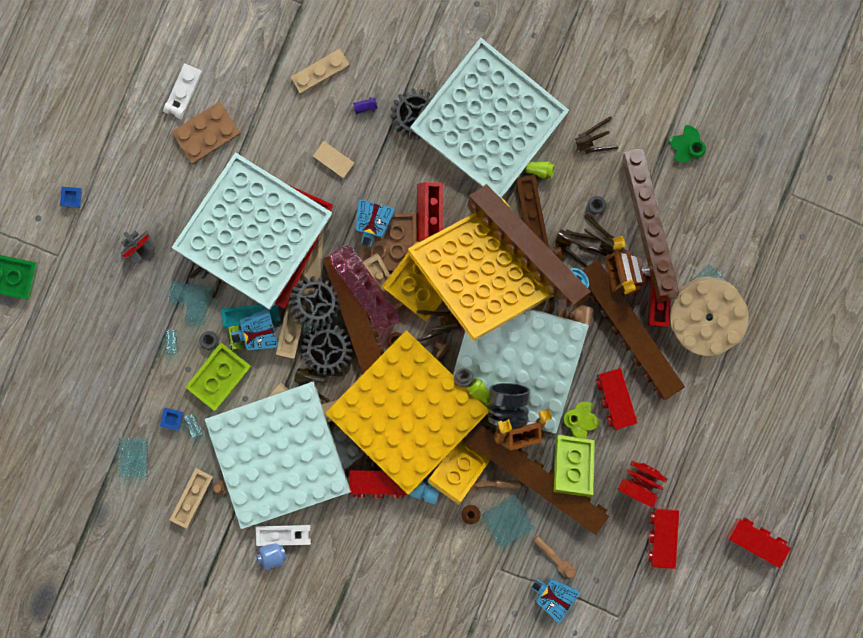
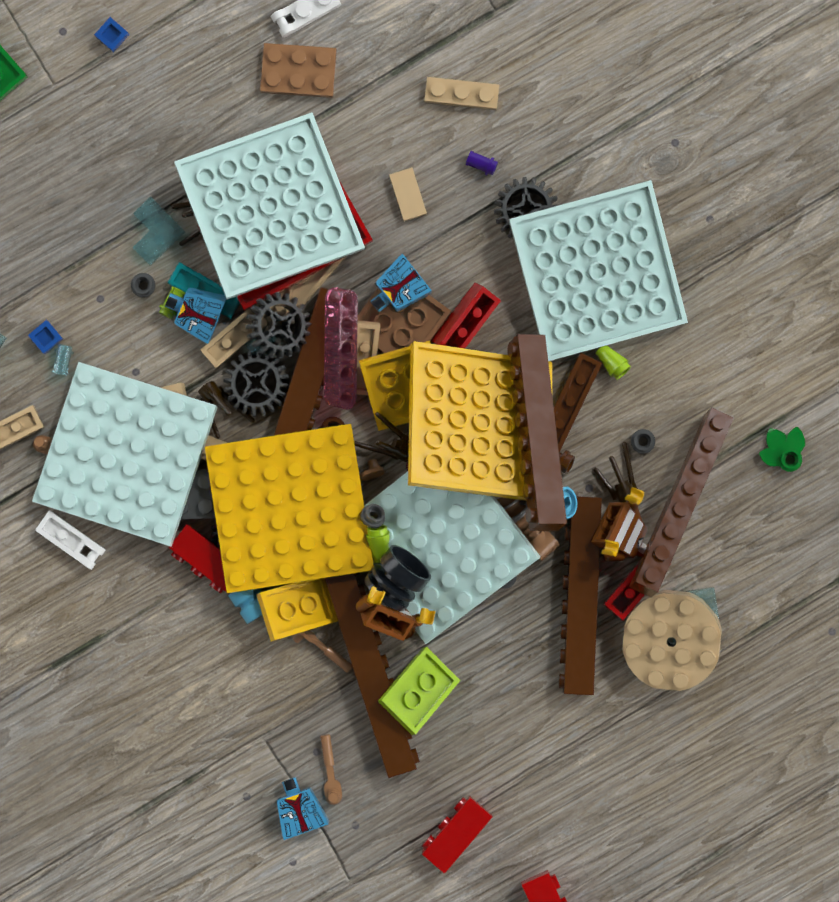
camera: 35 degrees right, 0 degrees up
(130, 251) = (151, 133): dark grey hips -> none
(171, 342) = (103, 258): clear light blue pin -> none
(218, 376) = (124, 329): lime plate -> none
(271, 556) = (42, 552): medium blue head -> none
(475, 519) = (284, 658): reddish brown plate -> none
(508, 521) = (310, 697): clear light blue plate -> none
(566, 238) = (585, 452): dark brown plant -> none
(584, 419) = (466, 650): lime plate -> none
(585, 142) = (679, 368): dark brown plant -> none
(616, 399) = (514, 655): red brick -> none
(642, 483) = (475, 761): red wheel -> none

